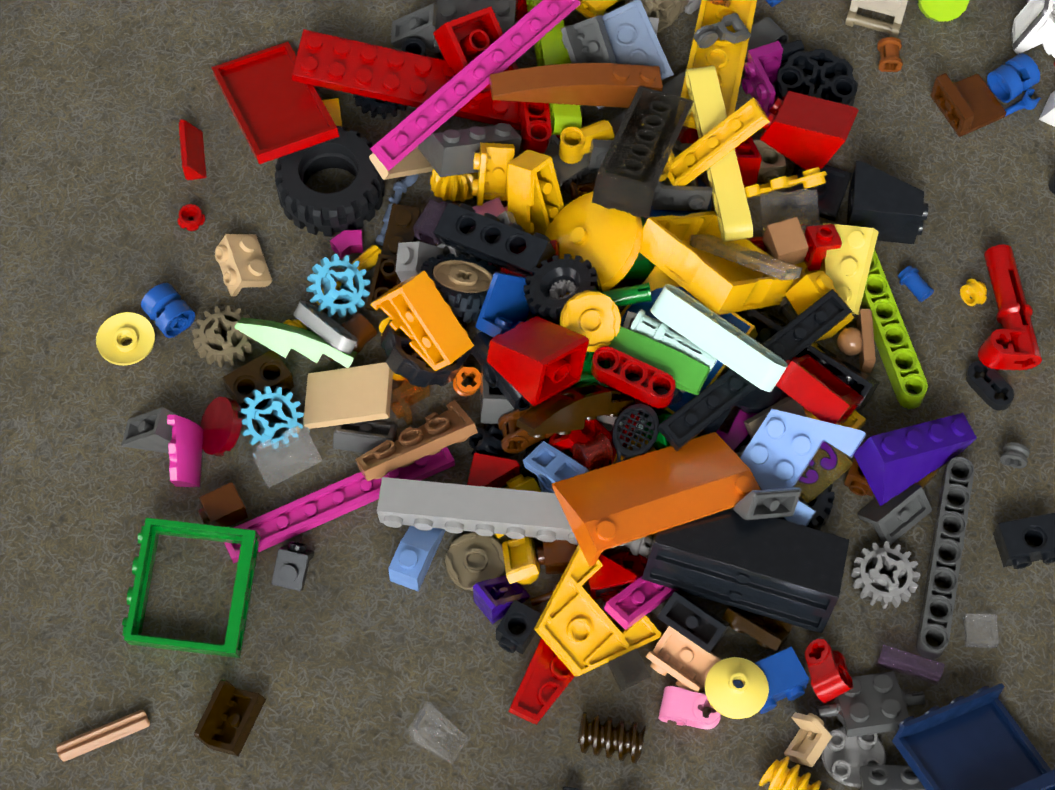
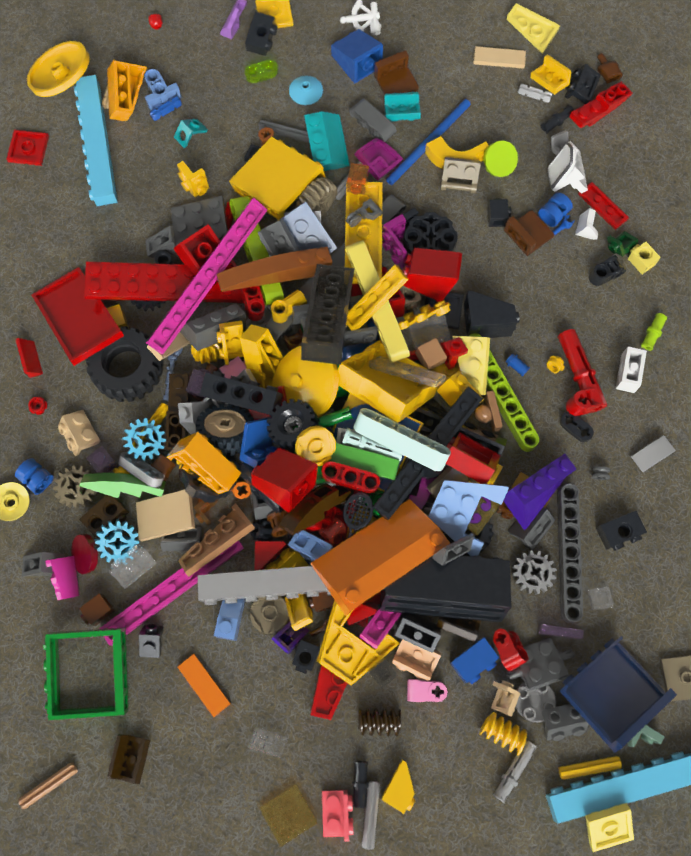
camera: 10 degrees left, 10 degrees up
(270, 304) = (102, 461): none -> clear purple brick
(347, 242) = (145, 404): dark pink piece -> none
(359, 642) = (204, 685): none -> orange tile
(733, 701) = (444, 678): light yellow dish -> none
(889, 53) = (473, 206): dark orange bush -> none
(925, 67) = (498, 212): none -> black brick

